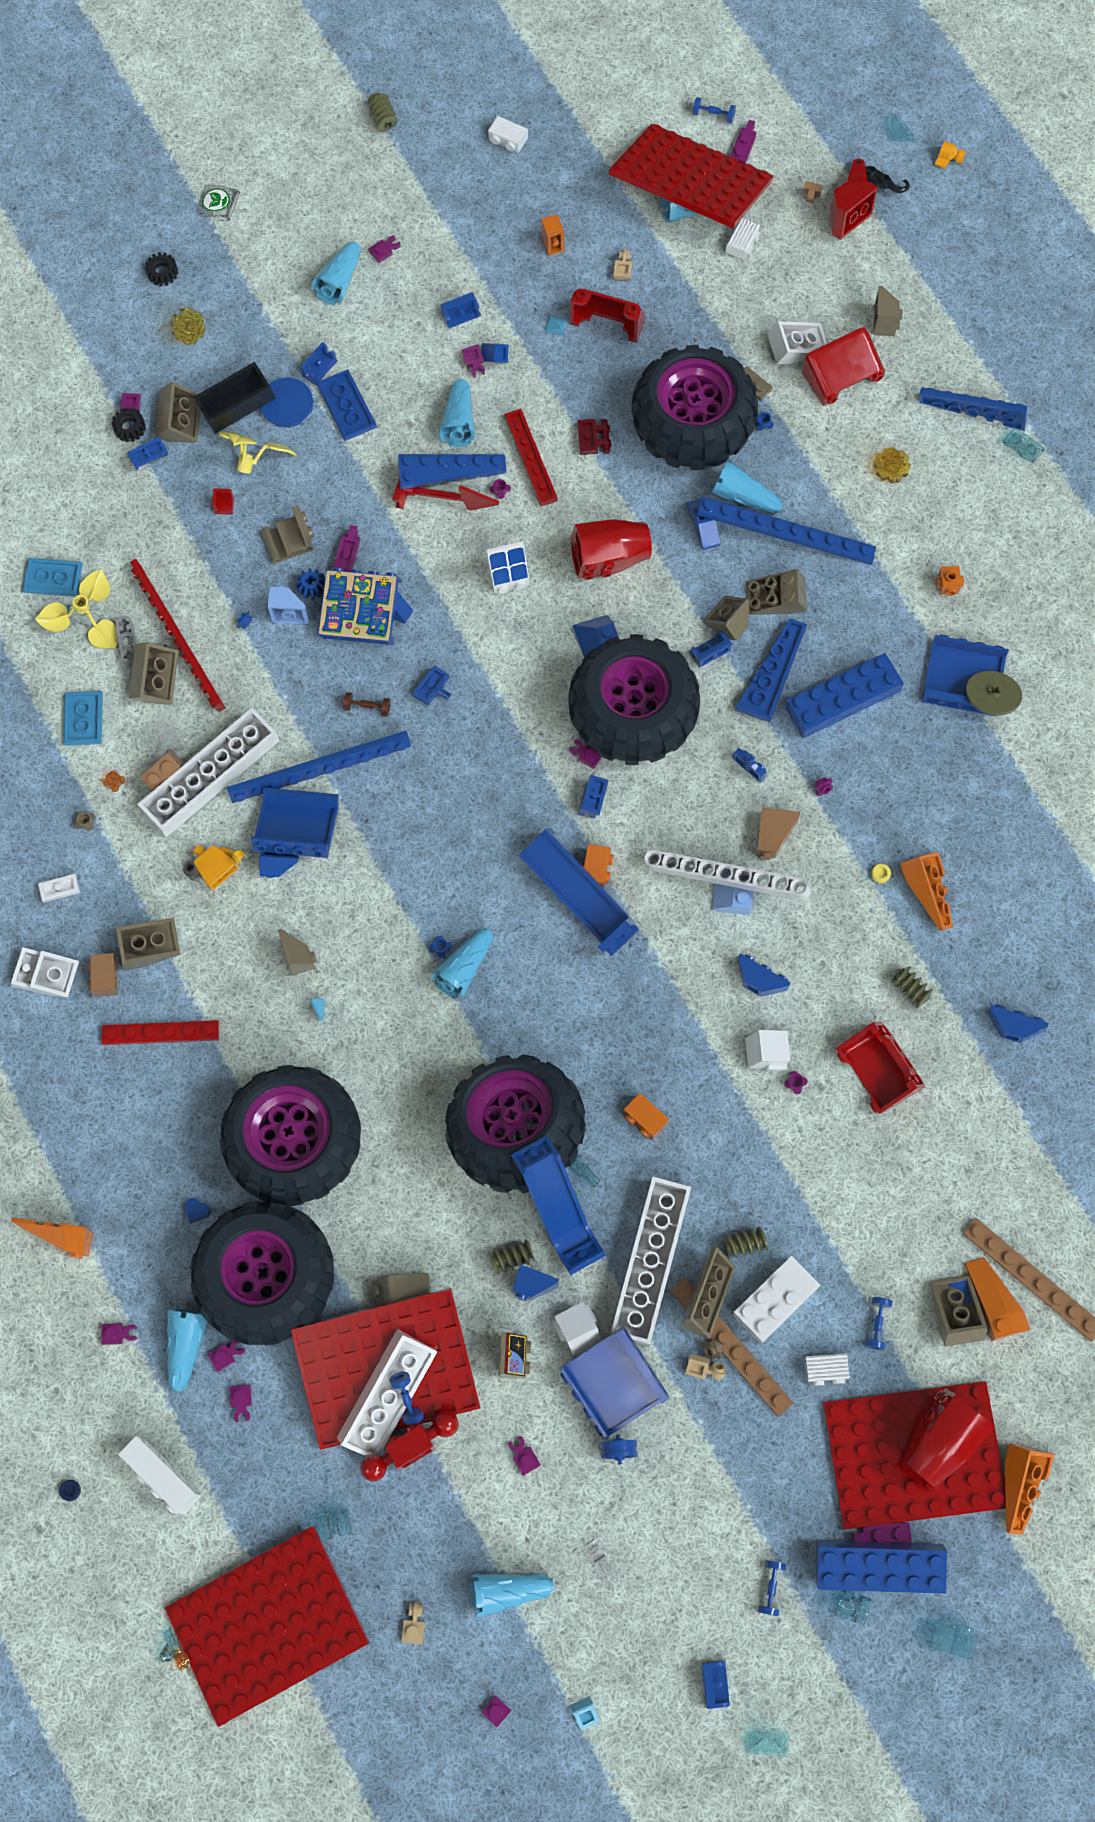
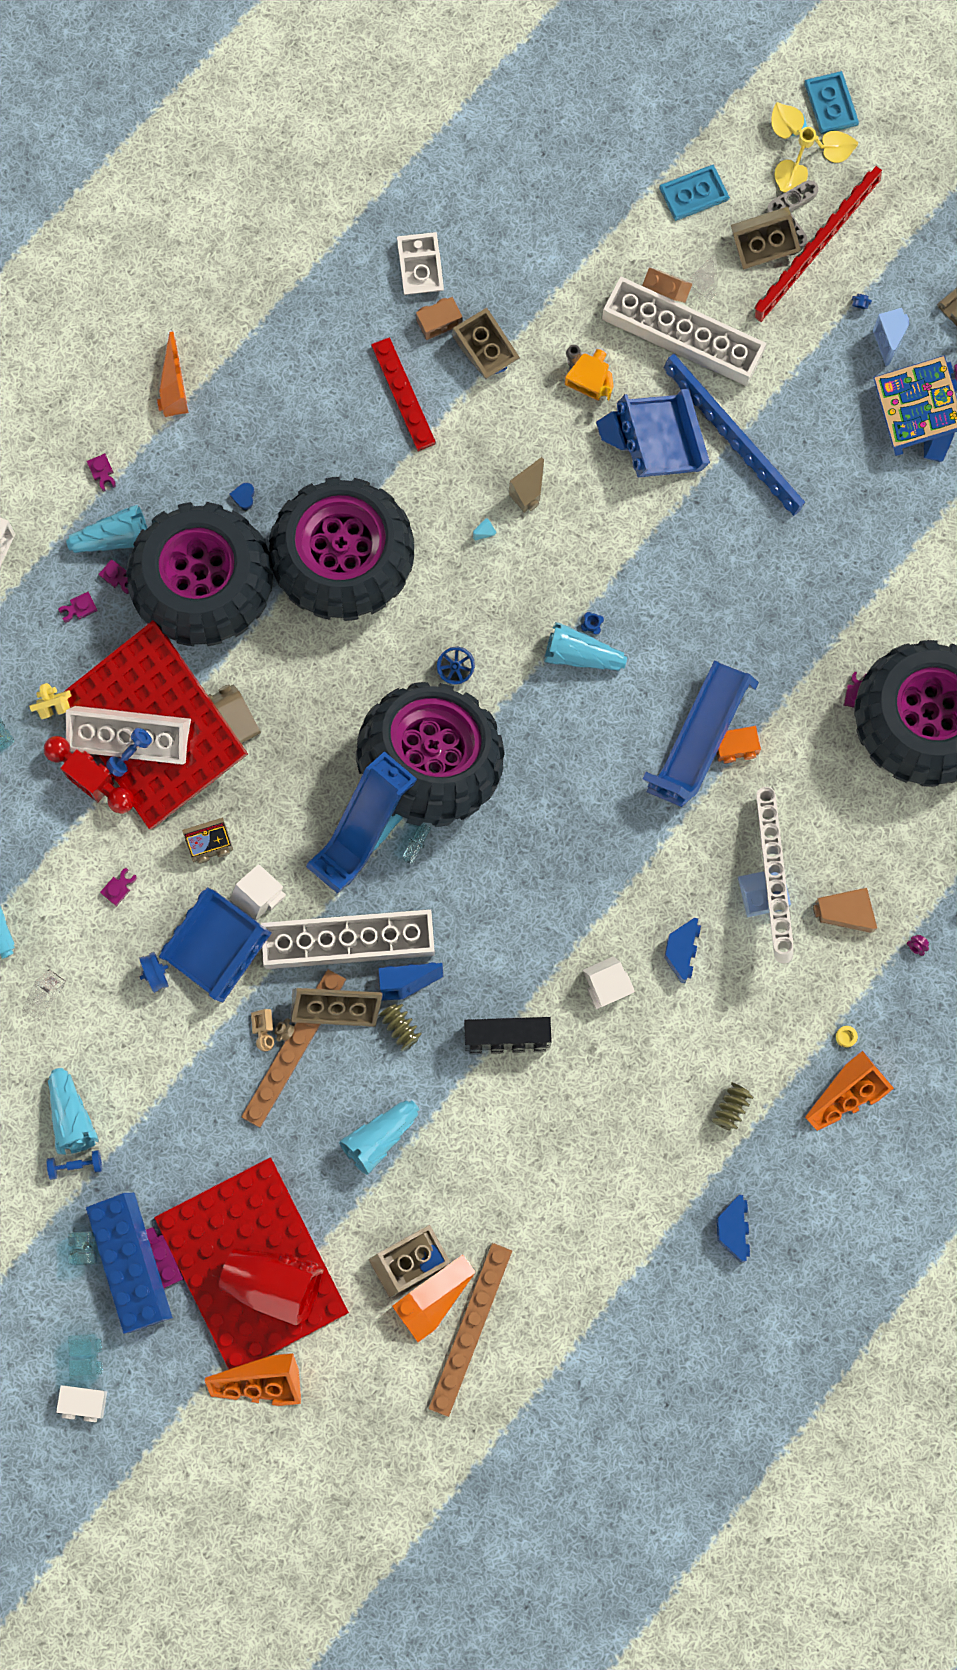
camera: 65 degrees right, 5 degrees up
(59, 888) = (510, 242): white plate -> none
(81, 816) = (588, 232): dark tan plate -> none
(113, 775) = (640, 242): clear orange plate -> none
(303, 583) = (930, 343): blue gear -> none
(321, 1458) = (49, 699): none -> light yellow hips
(348, 701) = (816, 435): copper wheel -> none
(432, 686) = (866, 511): blue plate -> none
(434, 1076) = (456, 665): none -> blue wheel
(512, 1256) = (304, 805): olive piece -> none
(533, 1283) = (284, 833): blue slope -> none
(593, 796) = (810, 713): blue hinge -> none
(645, 1116) = (493, 884): orange brick -> none
(705, 1225) = (403, 981): none -> blue slope
(729, 1576) = (69, 1117): none -> medium azure cone
(747, 762) = (915, 852): blue plate -> none
(776, 1300) = (354, 1075): white brick -> none
(786, 1151) = (507, 1034): none -> black piece
(794, 1076) = (591, 1019): magenta plate -> none
(827, 1368) = (304, 1149): white brick -> none
(840, 1301) = (372, 1141): none -> medium azure cone
(881, 1066) = (635, 1103): red windscreen -> none
(881, 1302) = (368, 1185): blue wheel -> none
(994, 1657) = (81, 1402): none -> white brick

